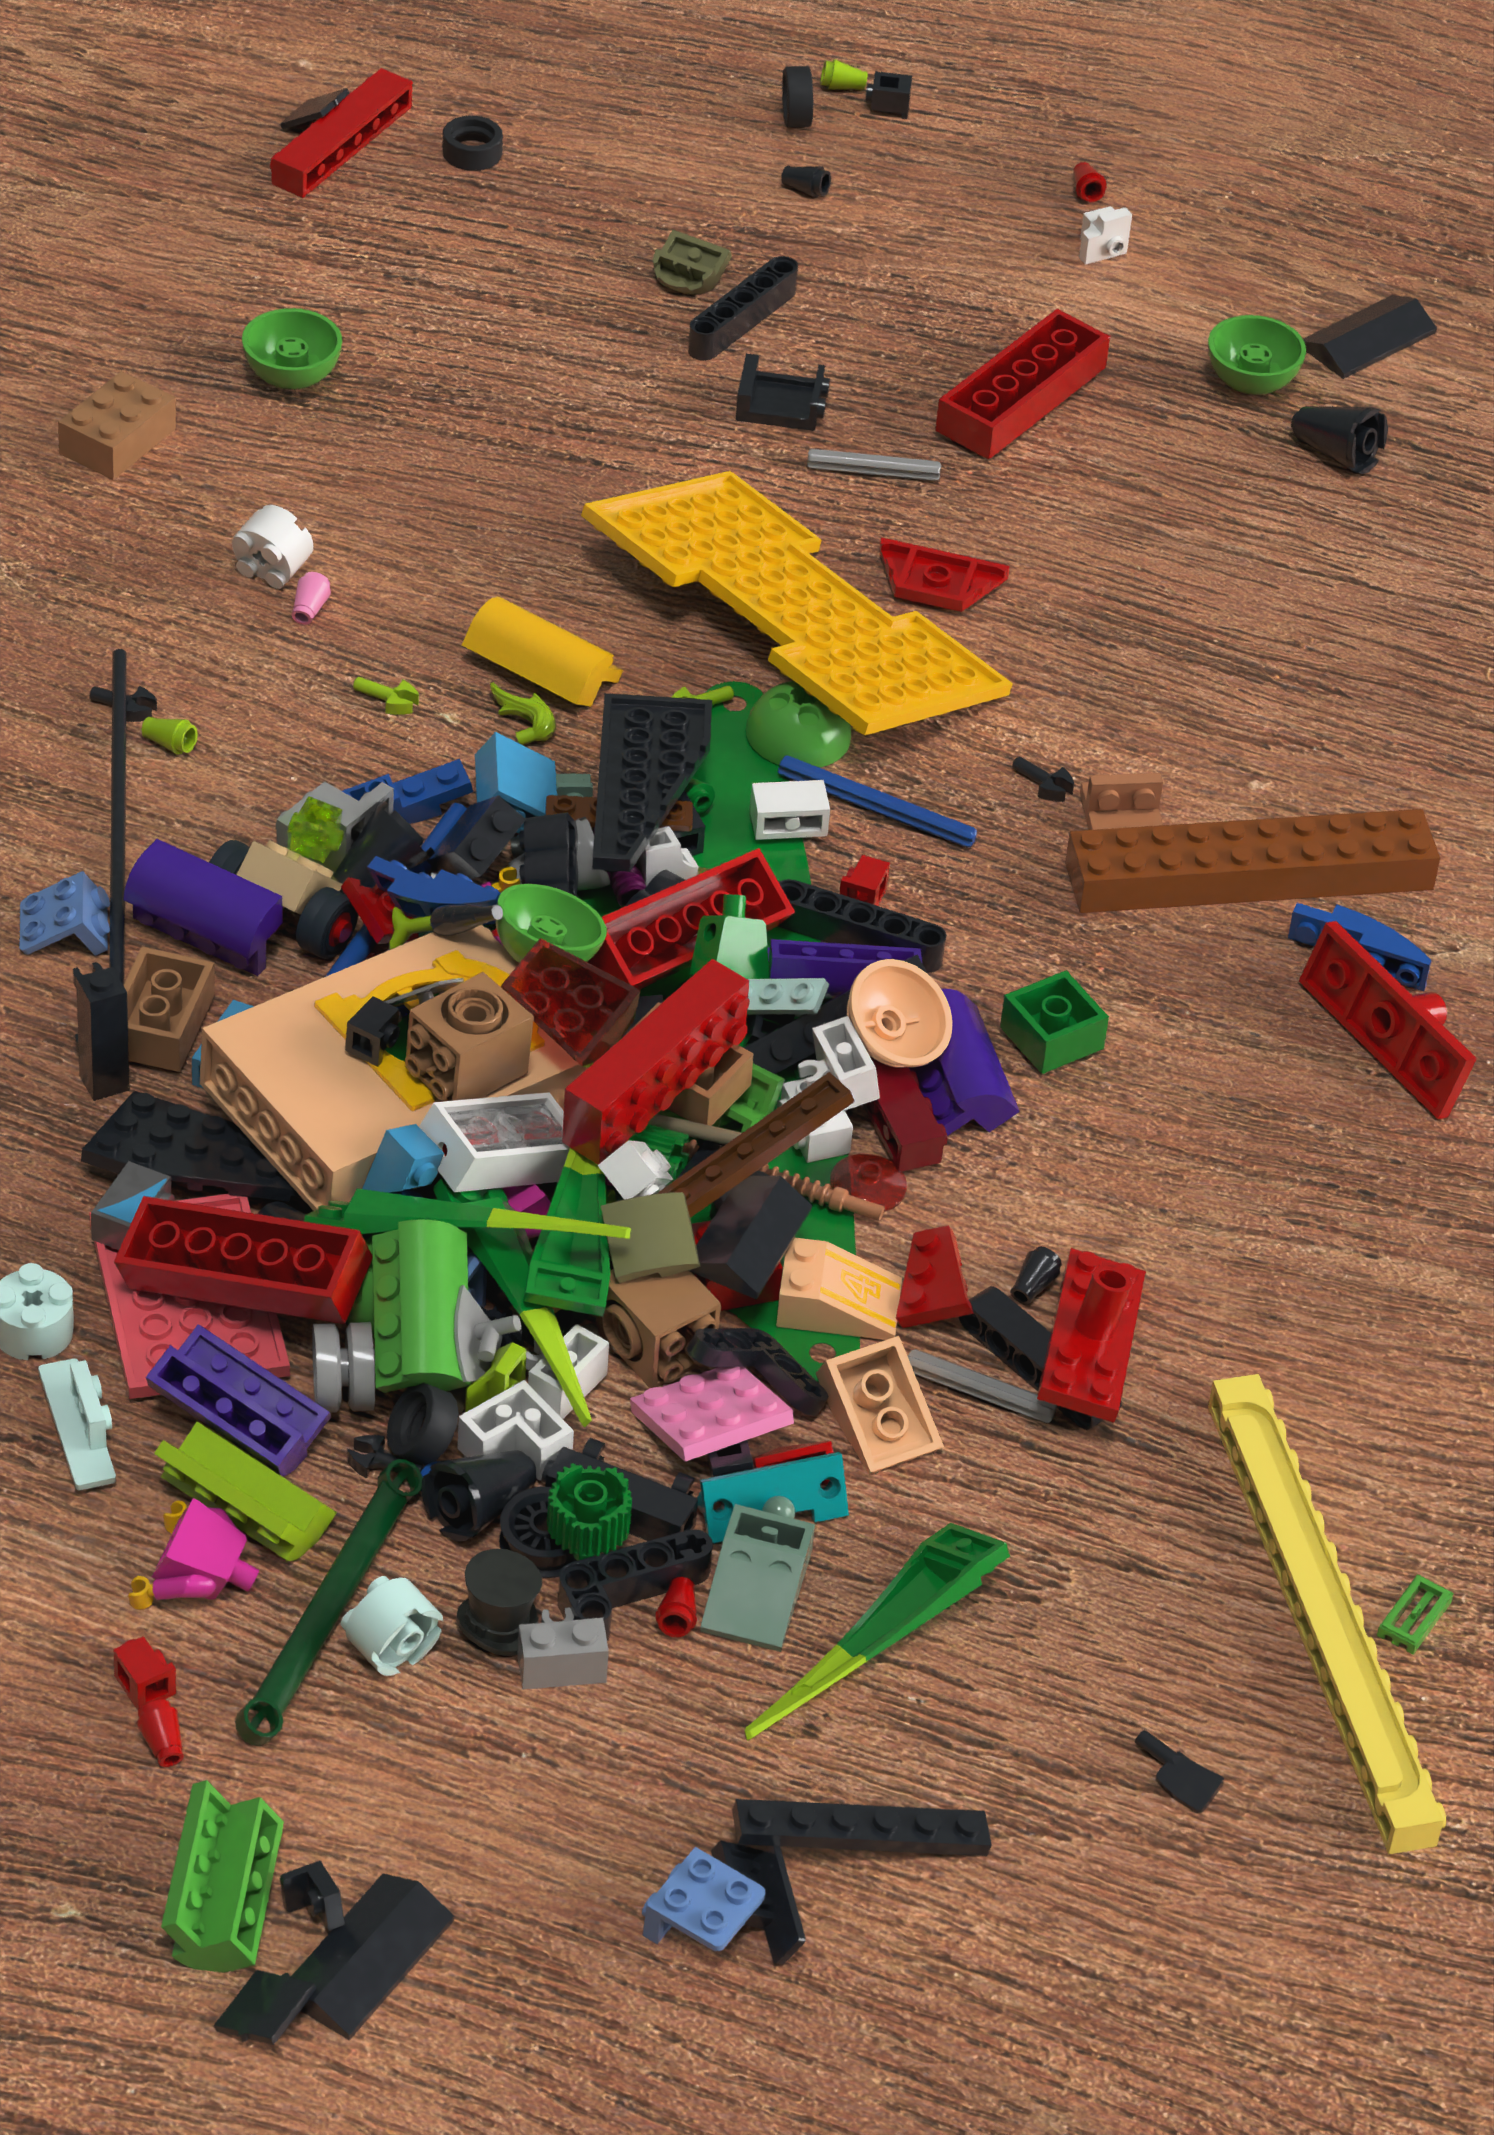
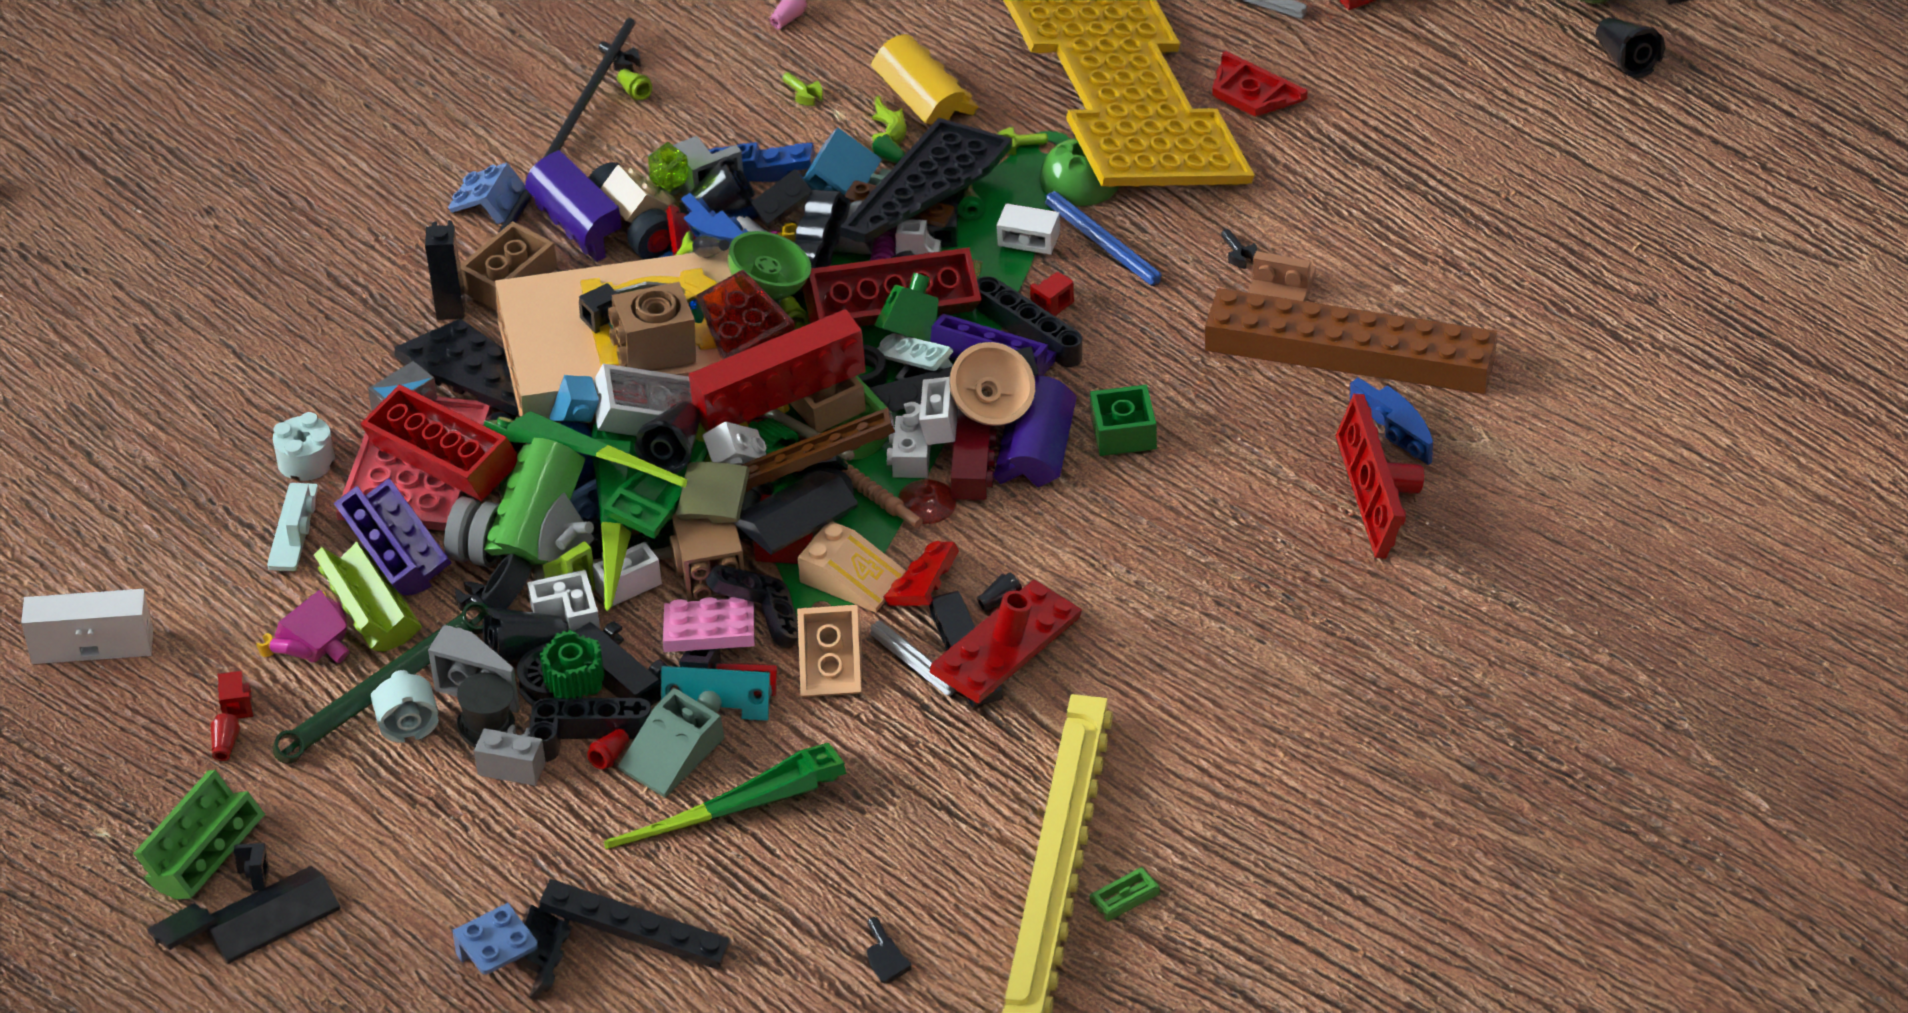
camera: 30 degrees right, 0 degrees up
(441, 1539) = (460, 654): none -> light grey slope
(558, 751) = (887, 149): none -> green cone
(568, 1179) = (669, 437): none -> black cone

